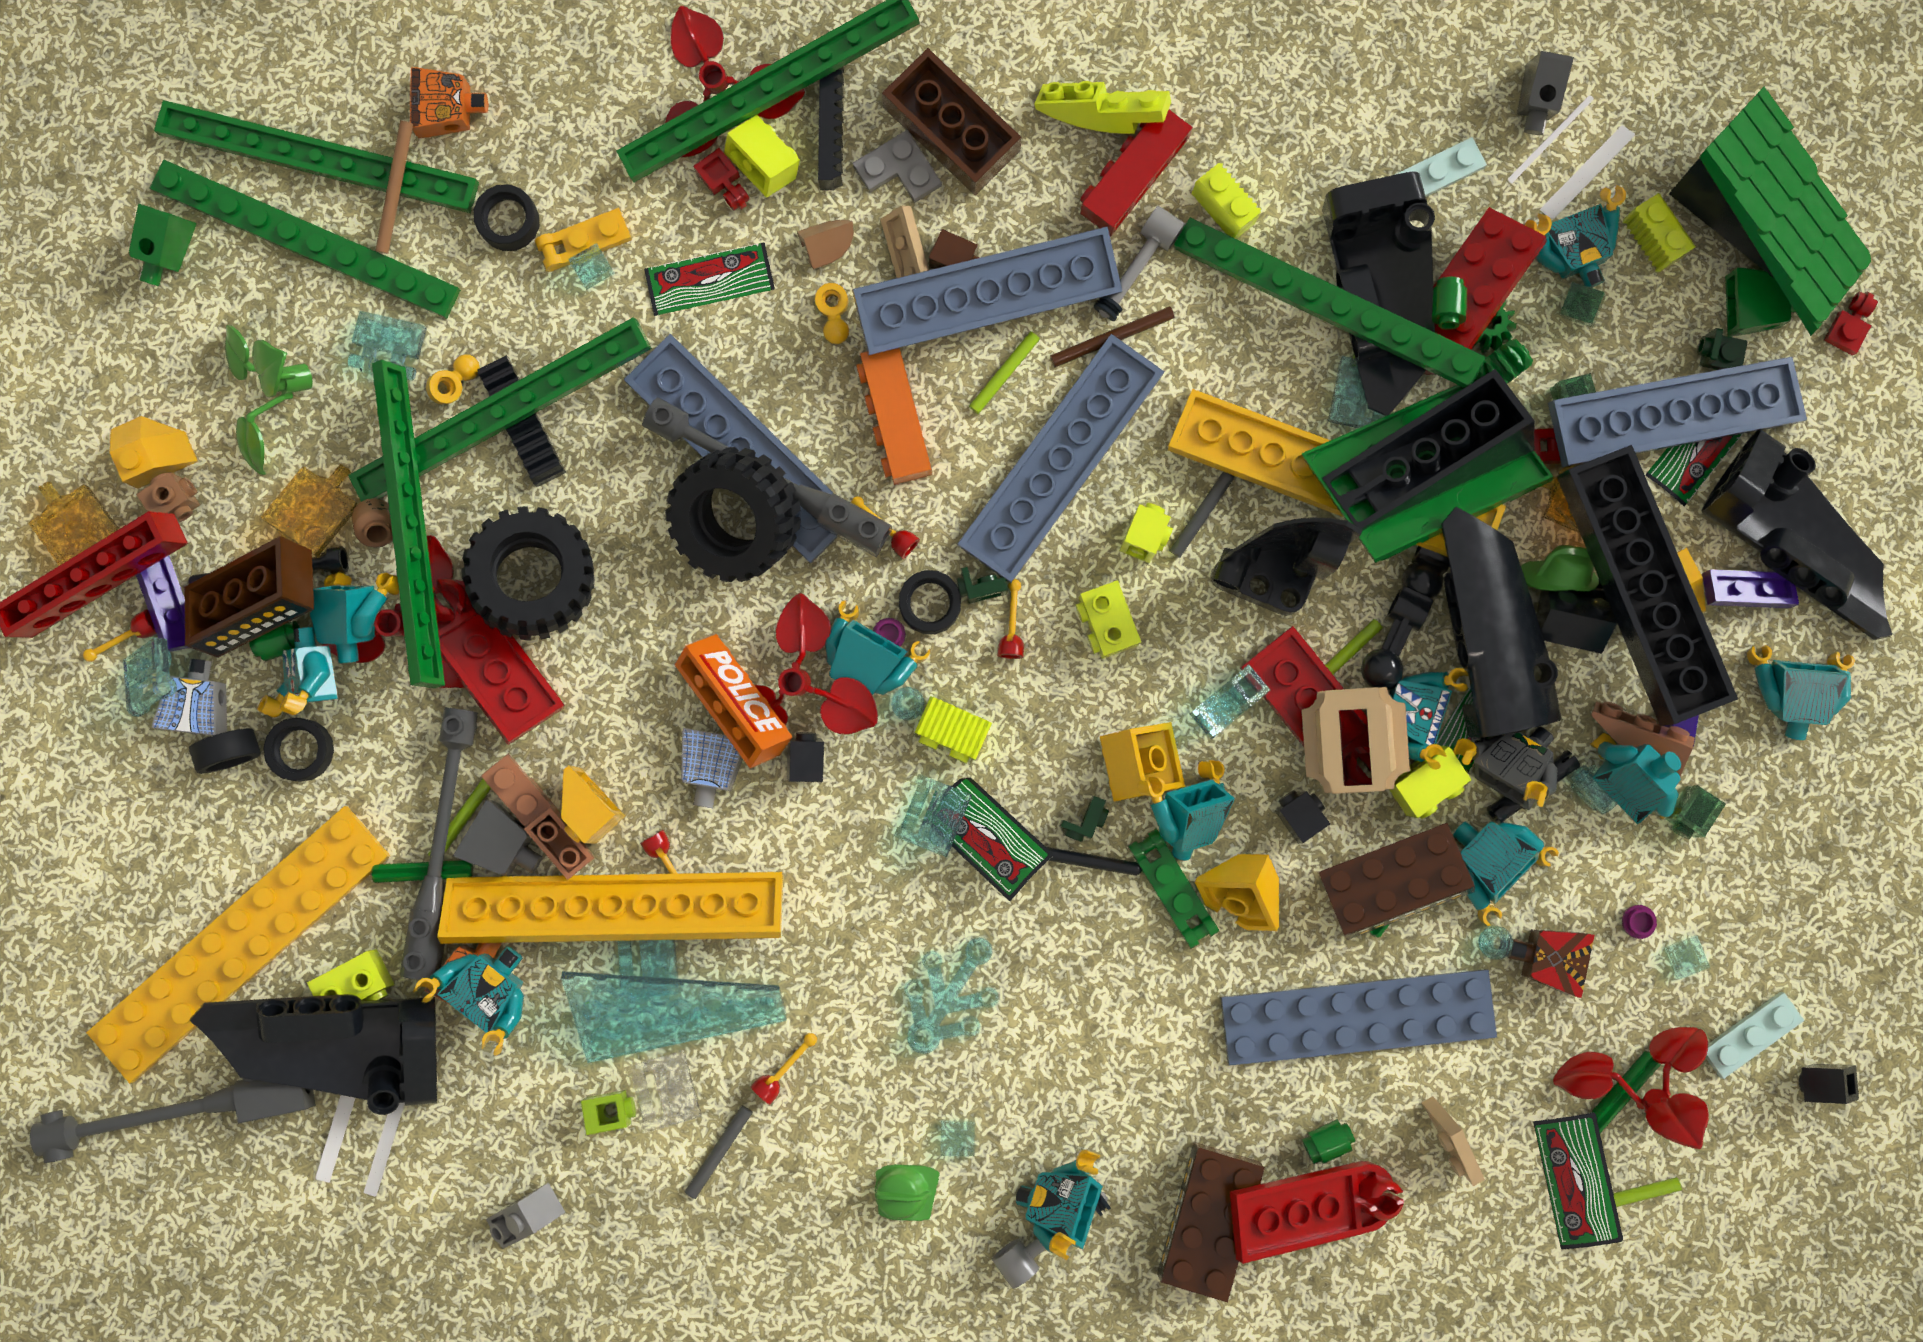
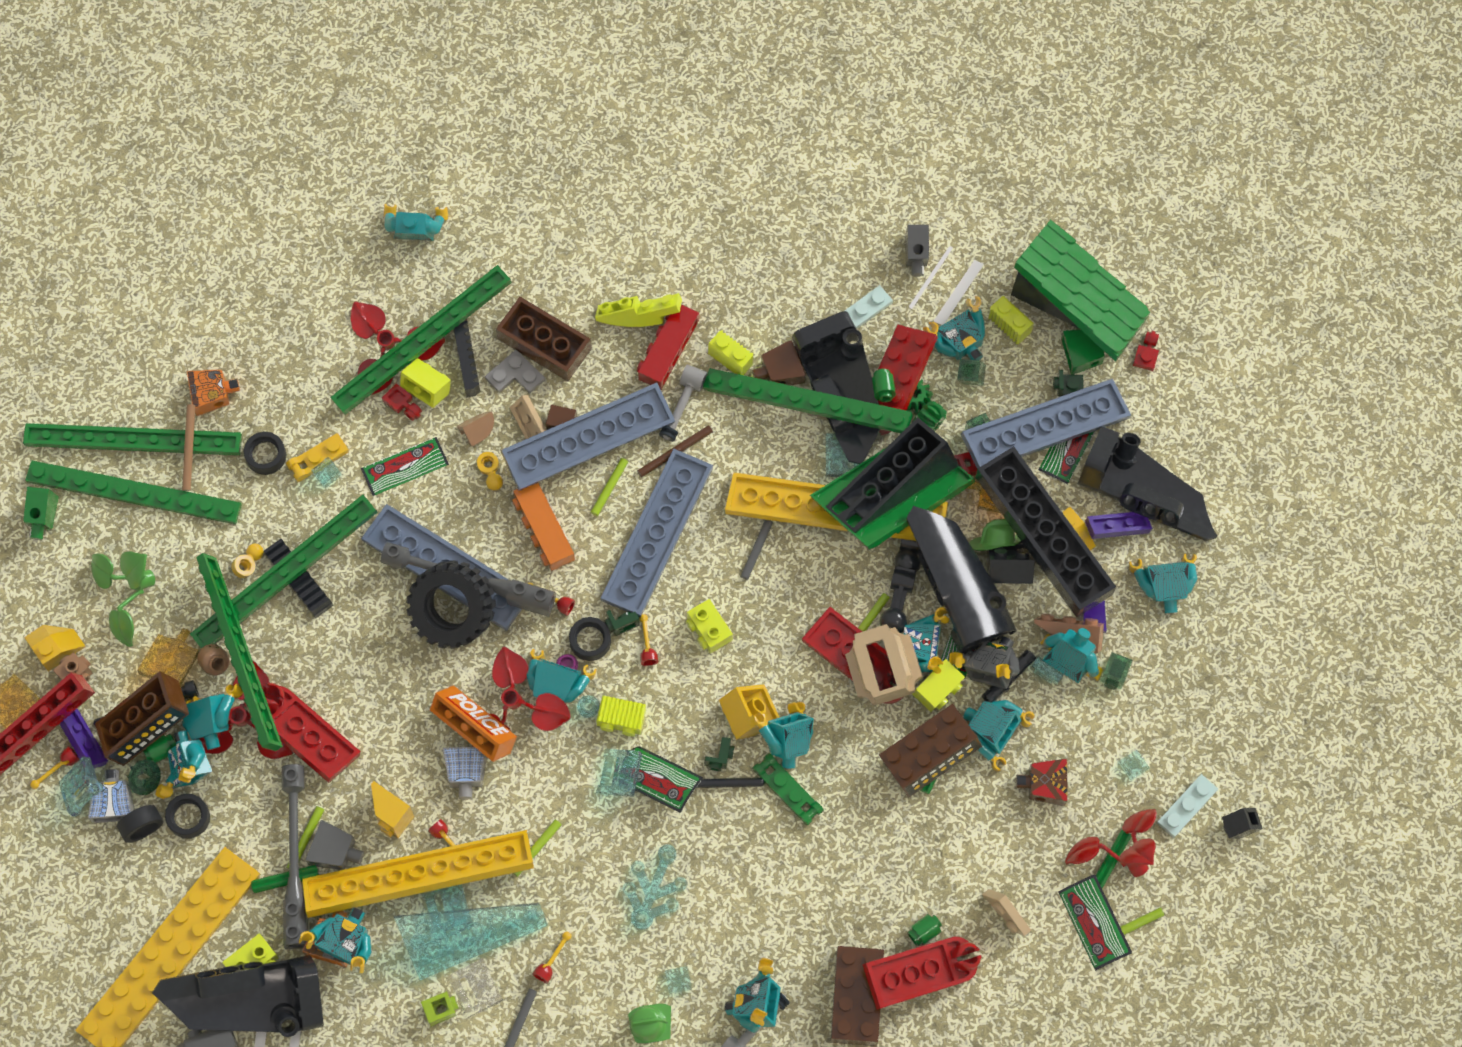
camera: 10 degrees left, 15 degrees down
(252, 689) = (147, 785): none -> clear green gear
(386, 335) = (199, 541): clear light blue plate -> none
(524, 531) = (316, 644): black tyre -> none
(537, 815) = (357, 825): nougat slope -> none
(805, 758) = (527, 752): black brick -> none
(806, 888) = (543, 839): none -> lime bar
(1147, 532) = (721, 565): neon yellow brick -> none
(1230, 701) = (799, 660): clear light blue brick -> none
(1245, 888) = (834, 778): yellow slope -> none
(1298, 236) = (781, 366): none -> reddish brown torso
(1302, 815) = (861, 724): black brick -> none
(1311, 543) = (805, 554): black panel -> none
(1358, 1017) = (927, 847): sand blue plate -> none
(1486, 942) = (1001, 777): clear light blue plate -> none
(1639, 921) = (1097, 748): magenta plate -> none

